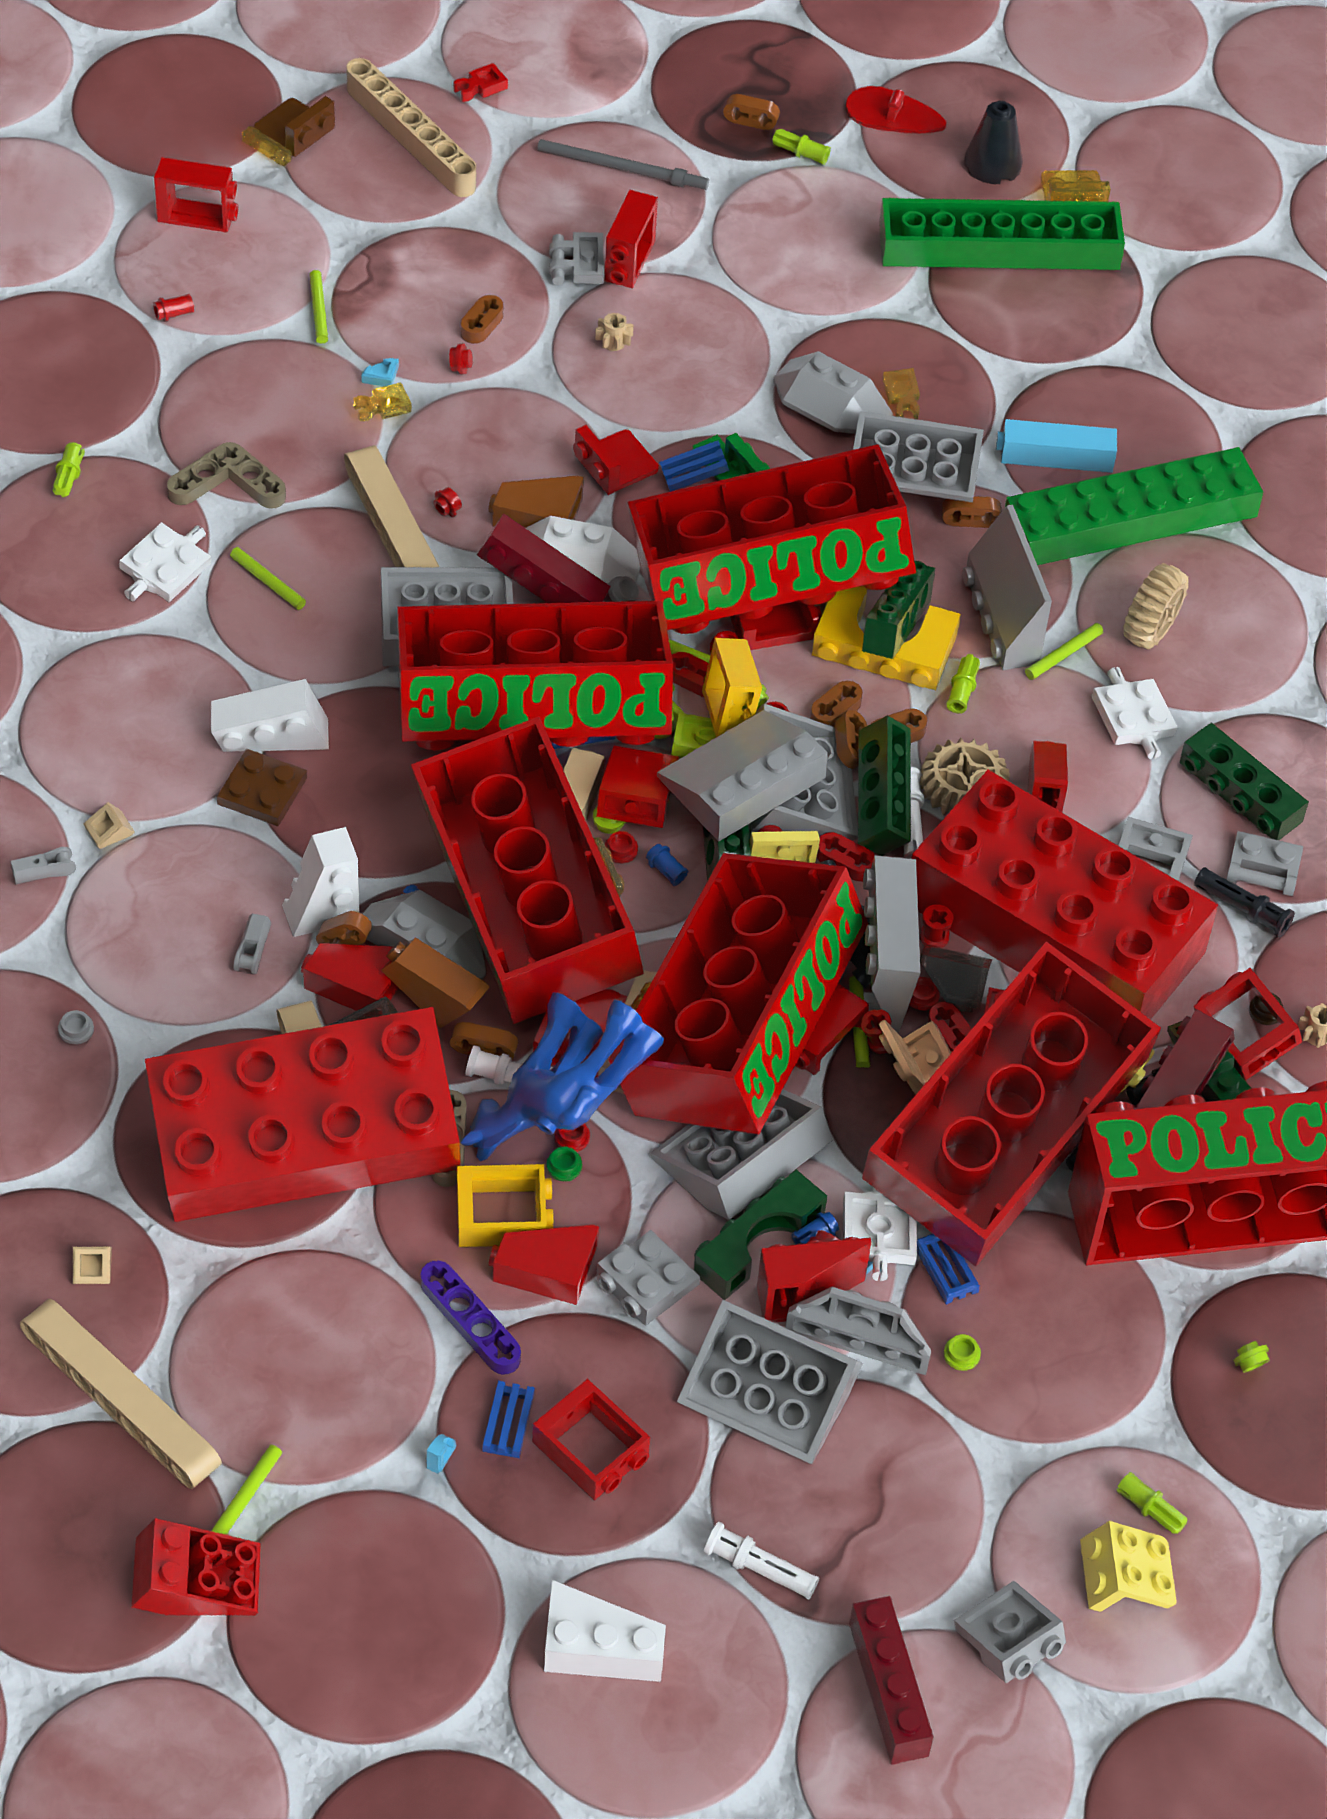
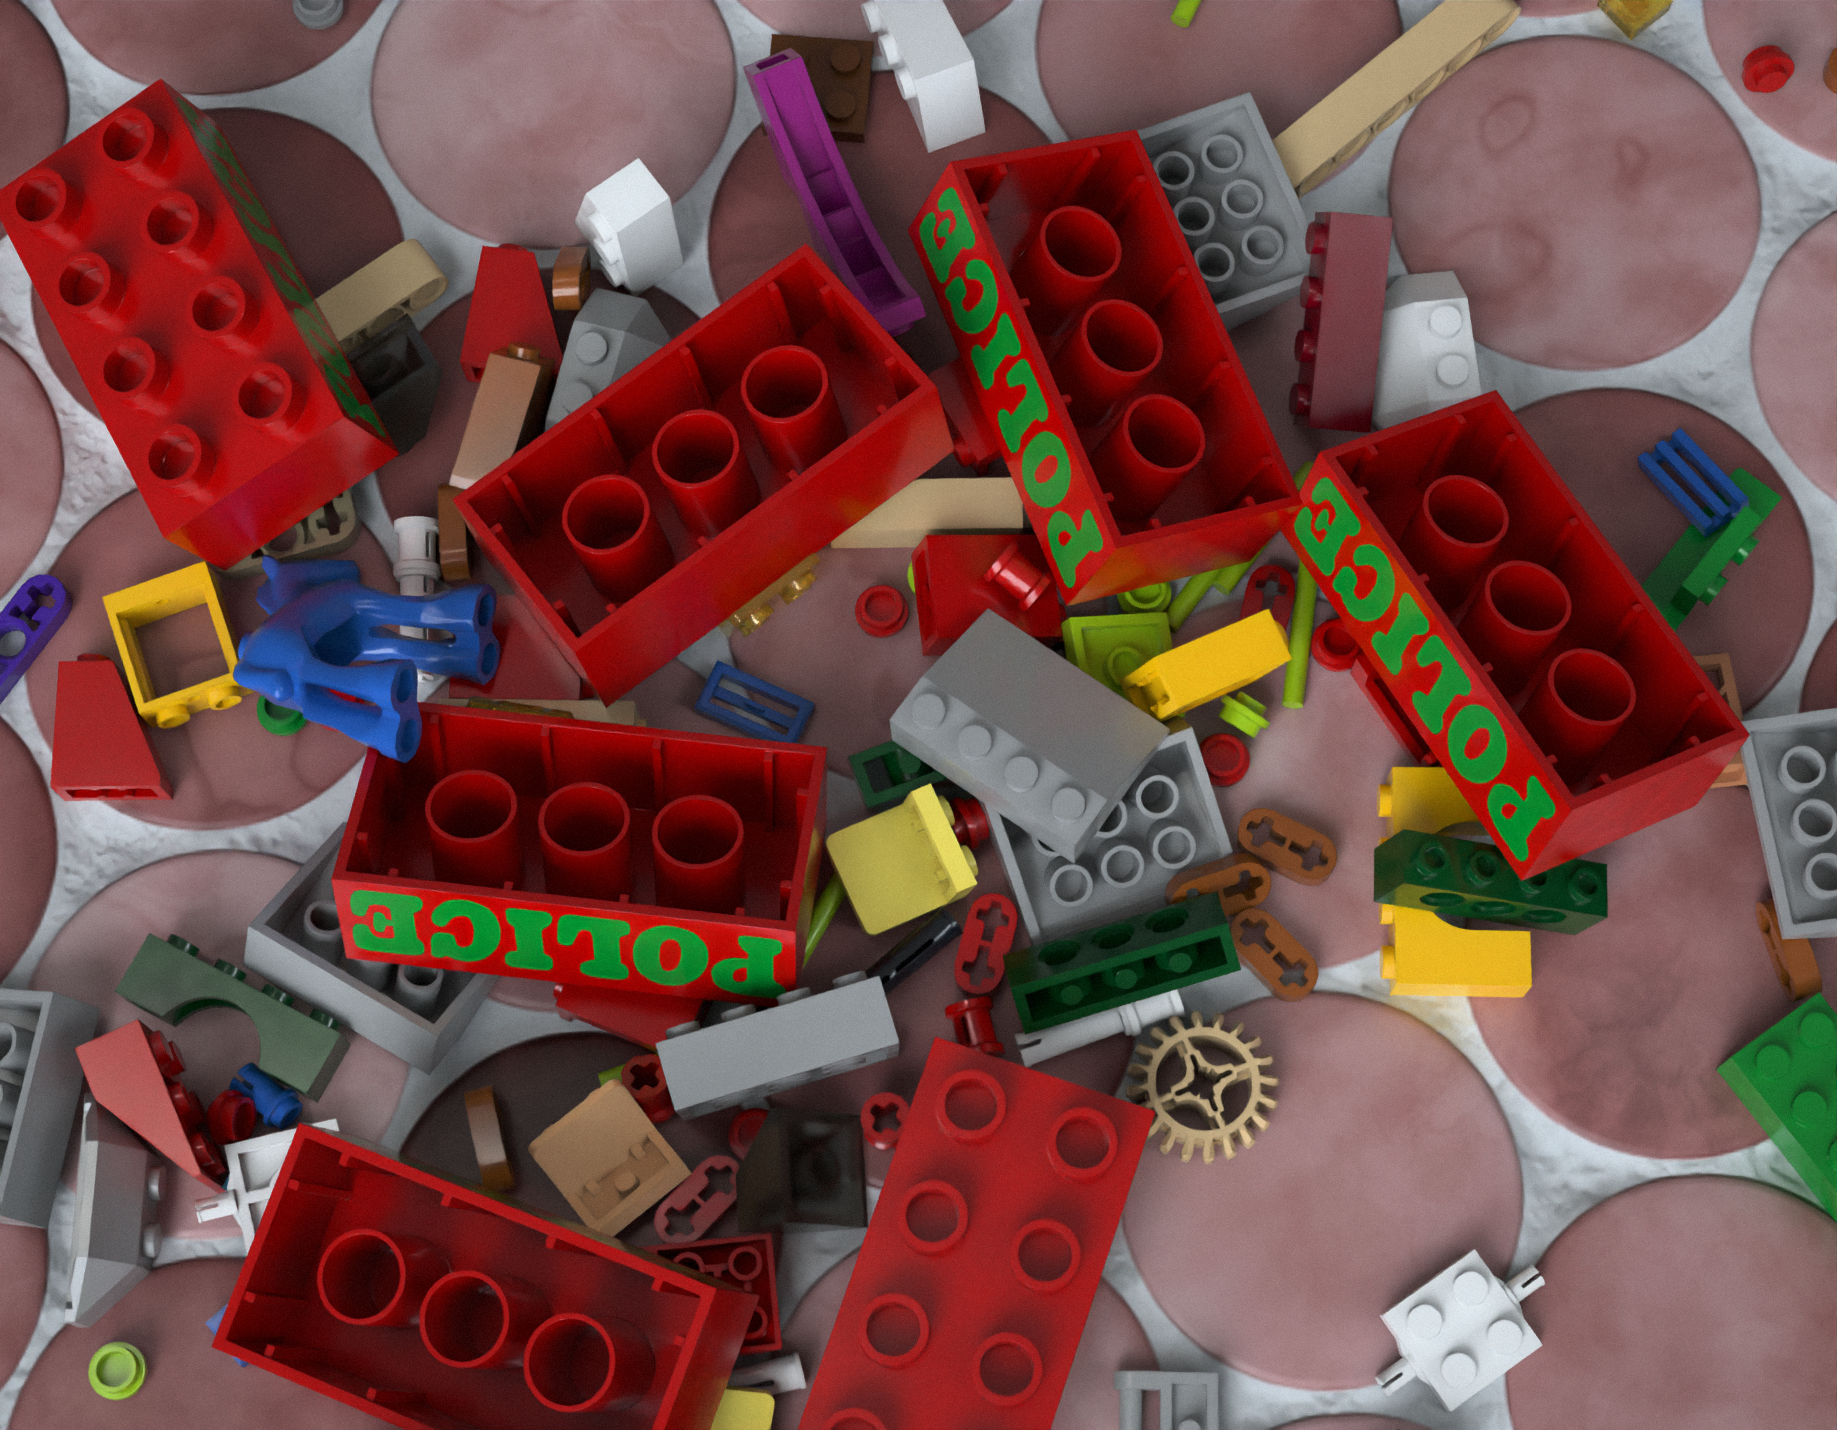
camera: 80 degrees right, 20 degrees up
(252, 943) = (539, 172): light grey bar -> none
(362, 791) = (826, 191): none -> magenta arch
(447, 502) = (1461, 149): red plate -> none
(537, 499) = (1508, 281): dark orange slope -> none
(614, 460) = (1655, 359): red bracket -> none
(641, 754) = (1018, 575): none -> red bush
(646, 1277) = (123, 878): light grey plate -> none
(660, 857) = (871, 684): blue pin -> none
(664, 936) = (748, 727): none -> blue tile
(871, 1120) = (490, 1138): none -> dark orange beam
(963, 684) = (1410, 1033): lime axle -> none
(1009, 592) = (1598, 1049): light grey slope -> none
(1048, 773) = (1243, 1218): red slope -> none
(1064, 651) = (1551, 1181): lime bar -> none
(1155, 606) = (1684, 1308): tan gear -> none

